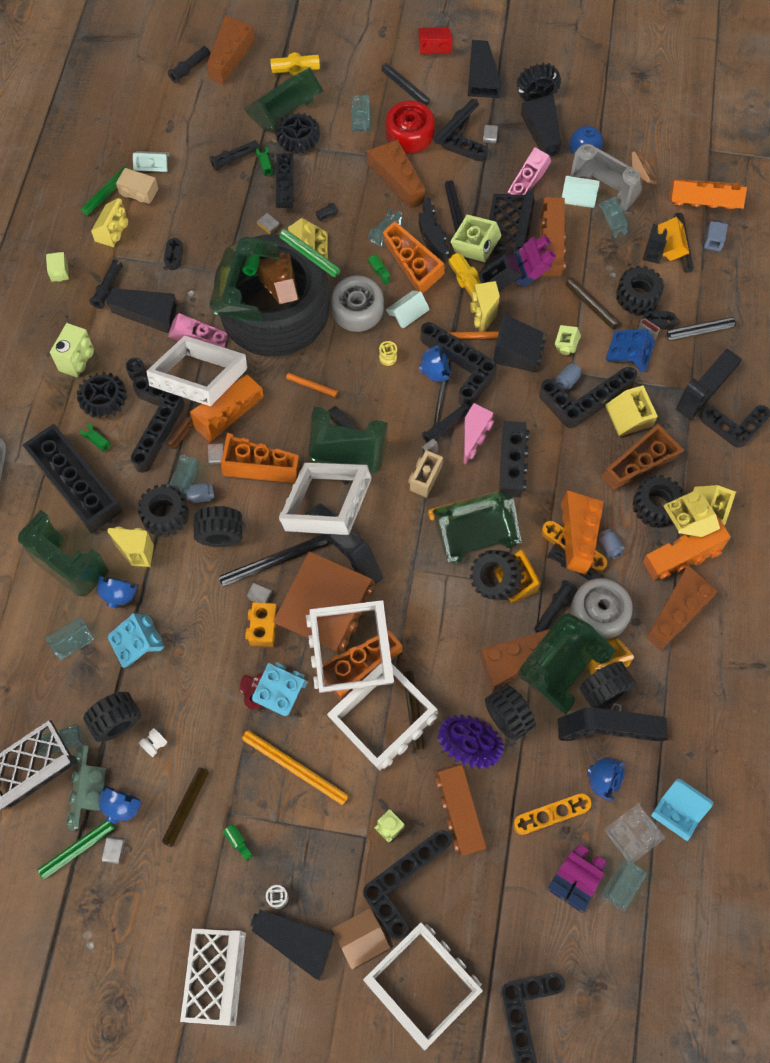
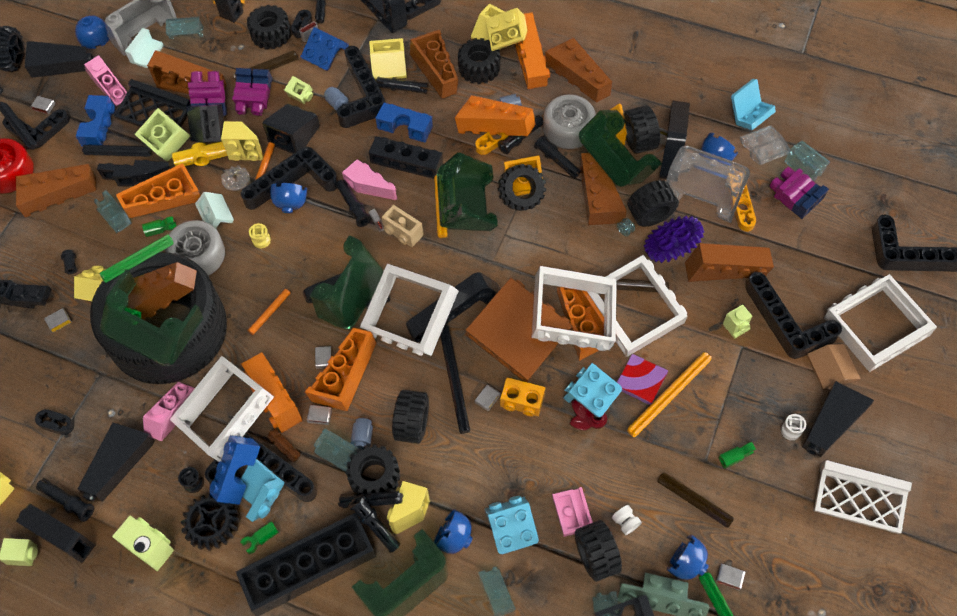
camera: 75 degrees left, 5 degrees down
(74, 286) = (55, 533): none -> black slope
(114, 513) = (369, 516): none -> black pin
(131, 512) = (374, 499): none -> black axle
(134, 425) = (261, 490): none -> medium azure bracket
(152, 394) = (237, 453): none -> blue arch
(154, 692) = (571, 510): none -> bright pink plate
(274, 441) = (322, 356): none -> flat silver piece
(306, 736) = (642, 379): none -> tile
(448, 321) = (242, 178): none -> clear gear
(468, 184) = (100, 111): none -> blue arch
(482, 692) = (626, 227): none -> clear light blue bush
(554, 298) = (251, 90): none -> magenta hips
(558, 432) = (392, 116): none -> blue arch
(559, 765) = (708, 179): none -> clear windscreen
(605, 426) = (394, 84): none -> black pin

